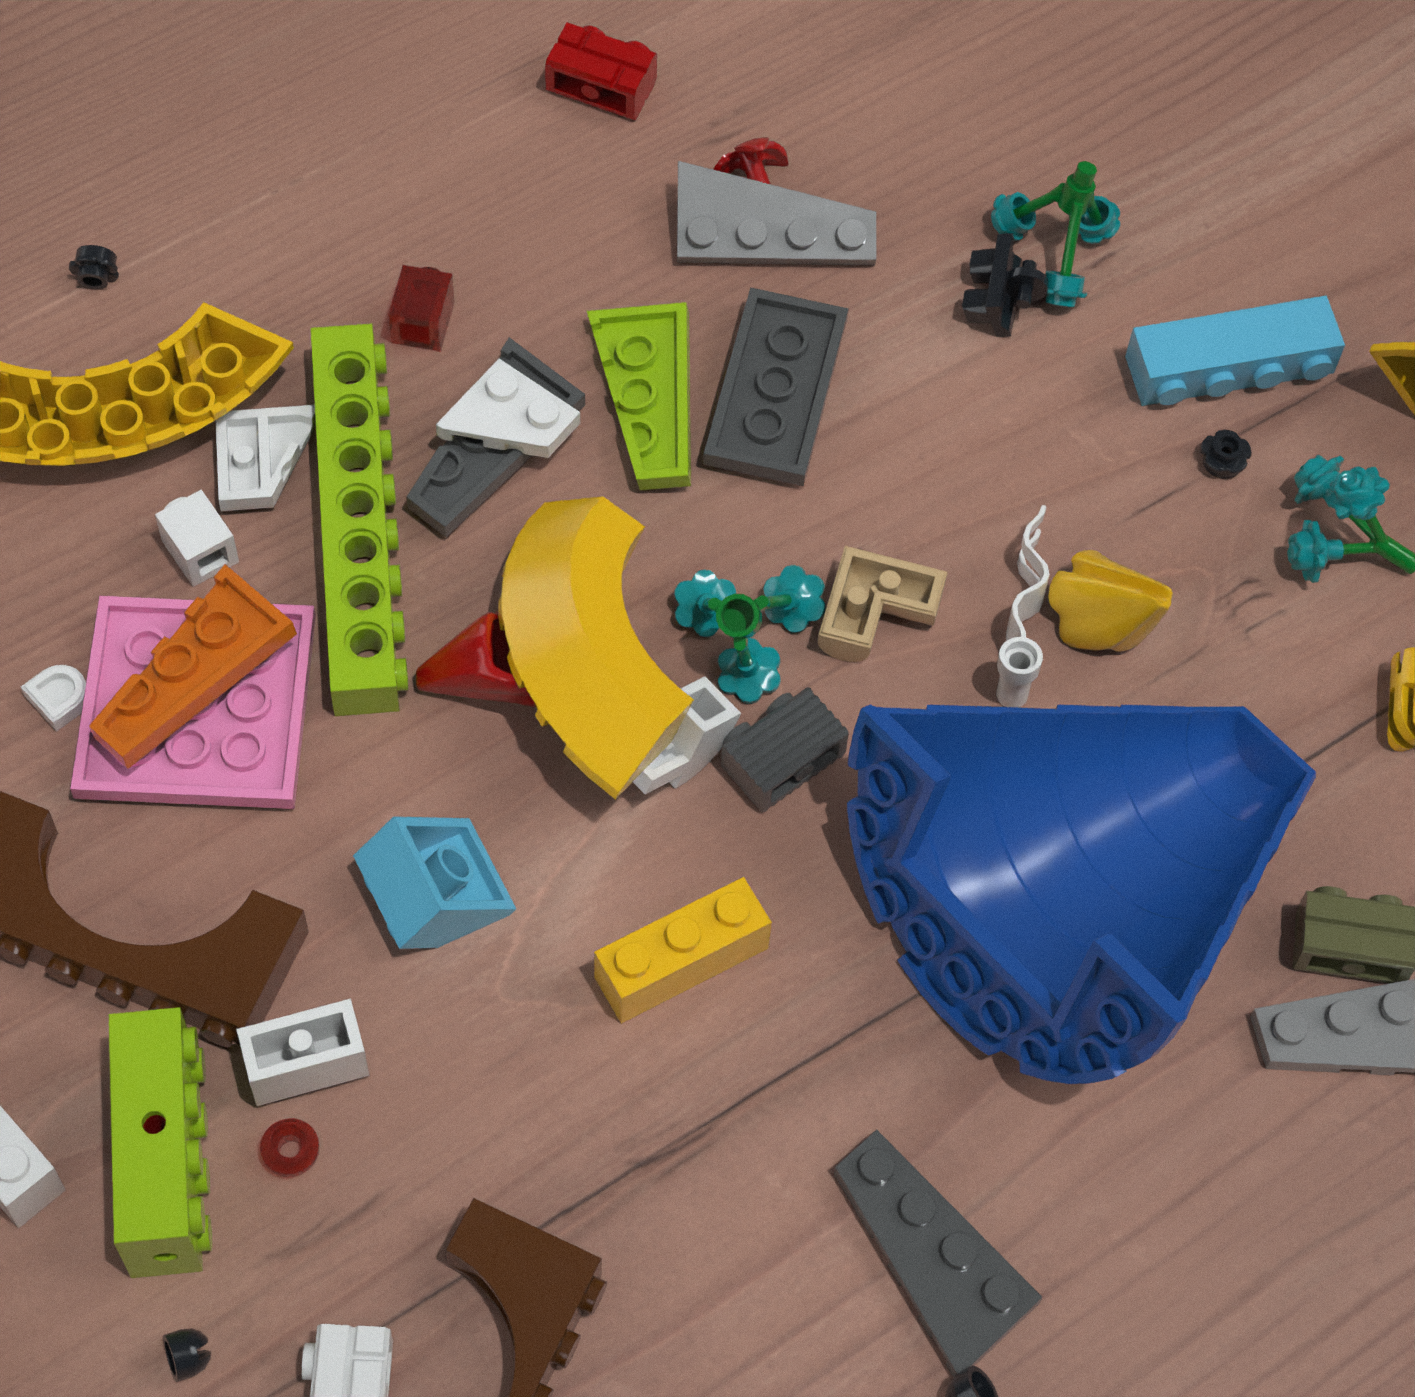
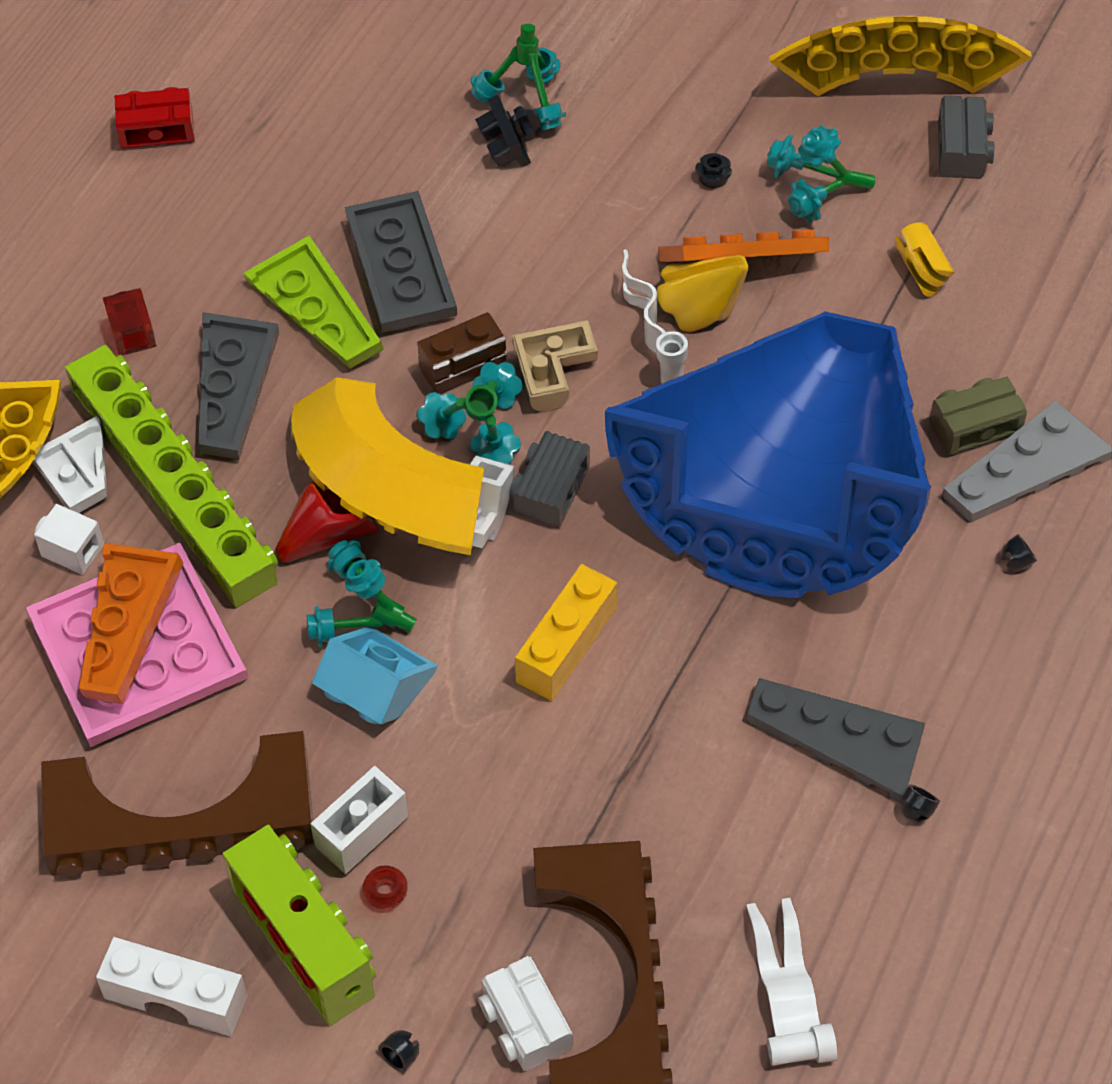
camera: 25 degrees left, 5 degrees down
(57, 694) = (34, 687): white tile -> none
(477, 767) = (365, 580): none -> teal plant
(510, 414) = (237, 357): white wing -> none
(751, 157) = (294, 127): red plant -> none
(761, 223) = (321, 166): light grey wing -> none
(774, 535) = (460, 352): none -> reddish brown brick
(1184, 571) = (765, 245): none -> orange wing
(1234, 351) = (680, 104): medium azure brick -> none
(1299, 1142) = (1021, 554): none -> black hinge

